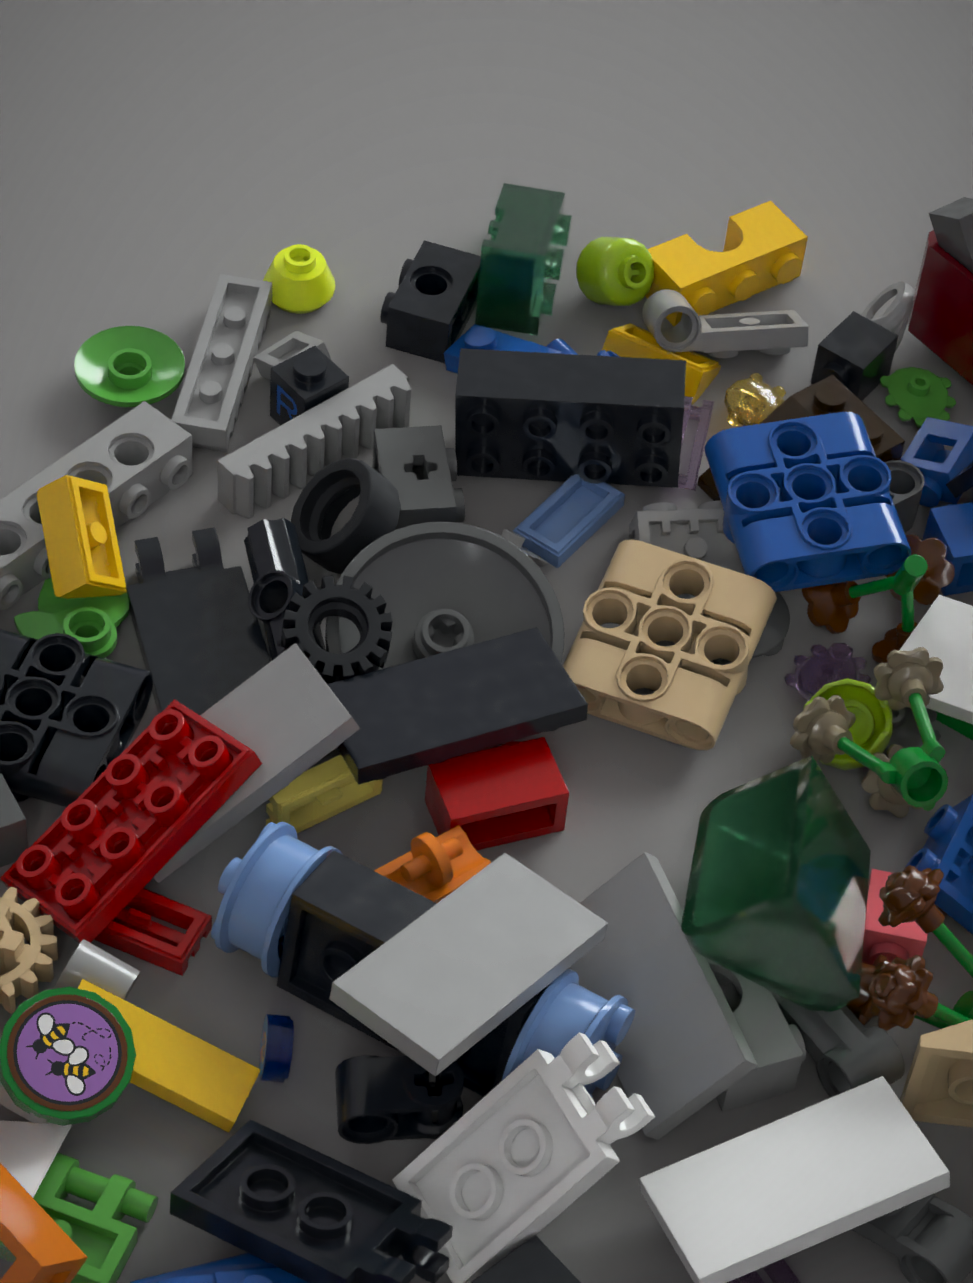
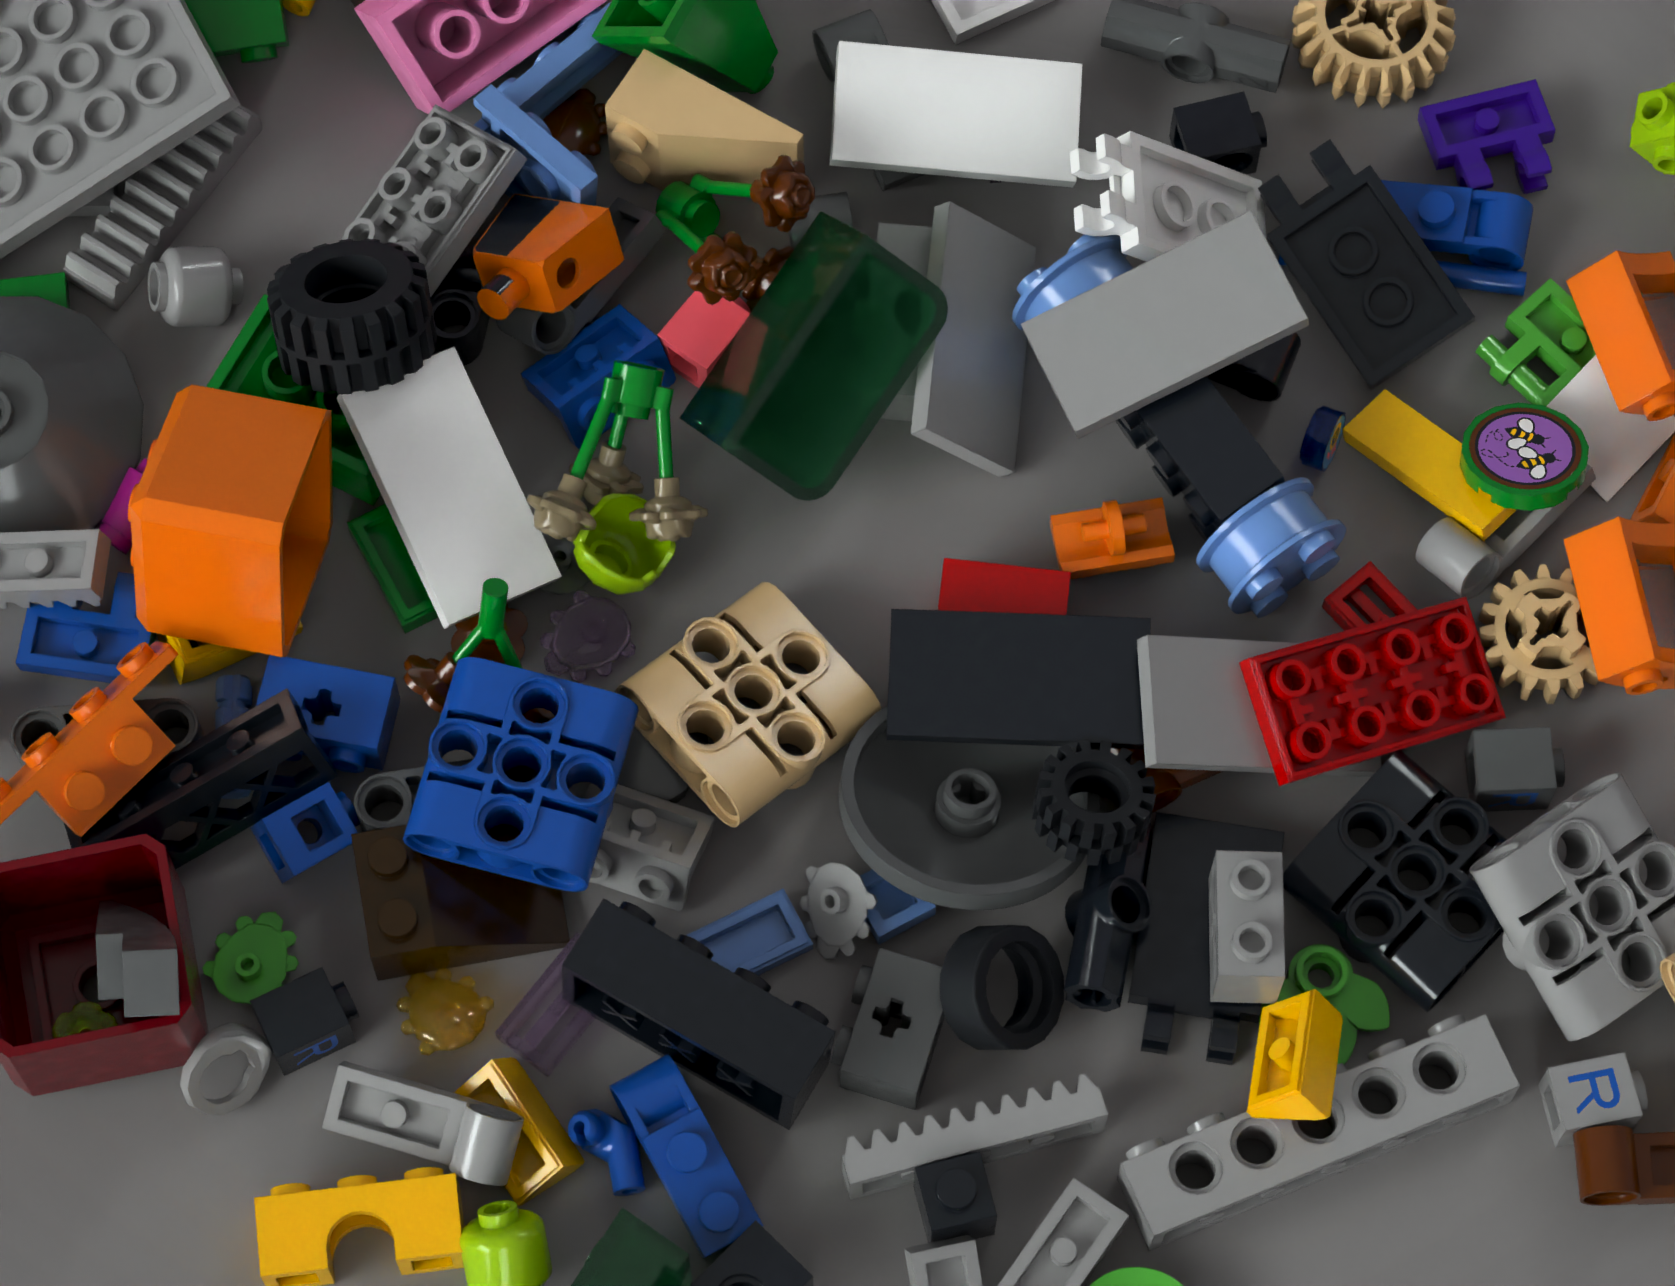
camera: 150 degrees left, 20 degrees up
(164, 605) = (1246, 927): none -> light grey brick

